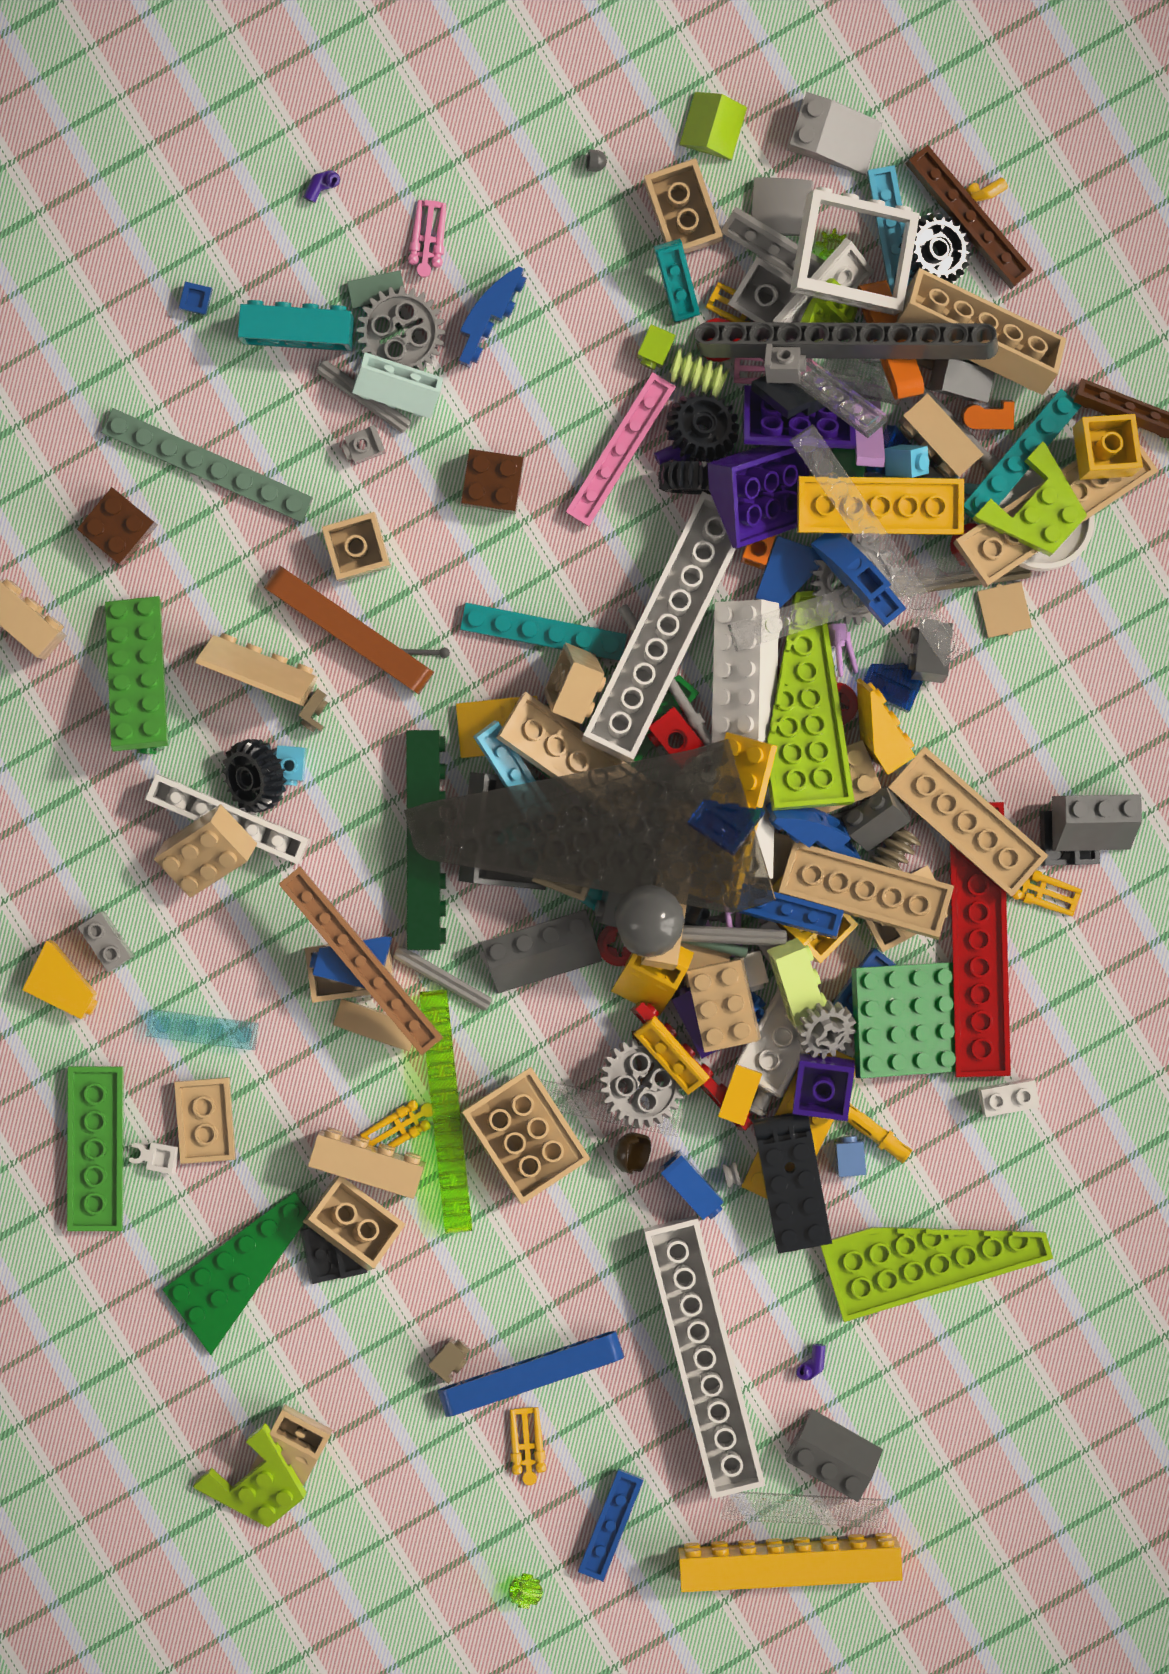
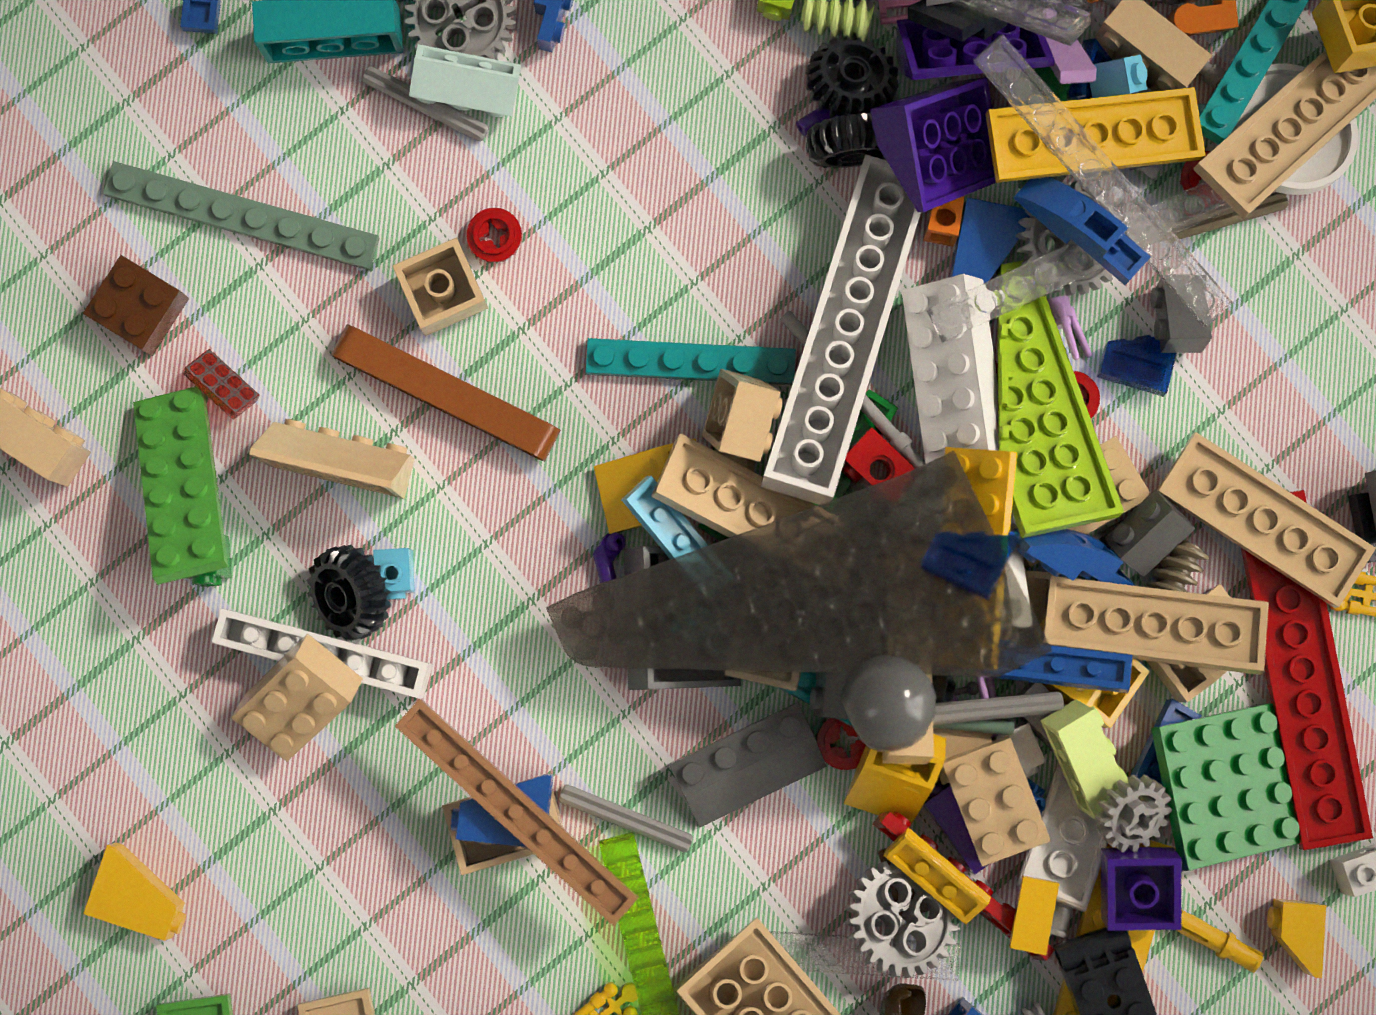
camera: 10 degrees left, 5 degrees down
(106, 941) = (186, 834): light grey brick -> none
(175, 597) = (221, 384): none -> clear red tile
(202, 1029) = (325, 930): clear light blue plate -> none
(314, 706) = (414, 493): dark tan bracket -> none
(371, 1024) = (541, 892): tan slope -> none
(373, 449) = (444, 167): light grey brick -> none
(411, 499) = (479, 229): none -> red gear
(424, 875) = (582, 687): dark green brick -> none
(443, 652) = (569, 406): dark grey hinge -> none
(455, 773) = (606, 553): none -> dark purple arm
(492, 481) = (600, 182): reddish brown brick -> none
(620, 449) = (753, 123): bright pink plate -> none
(850, 1156) = (1185, 974): medium blue brick -> none
(880, 730) = (1138, 417): yellow slope -> none
(943, 1137) = (1300, 931): none -> yellow slope
(1004, 609) = (1260, 252): tan piece -> none
(1048, 514) = (1303, 121): lime wing -> none

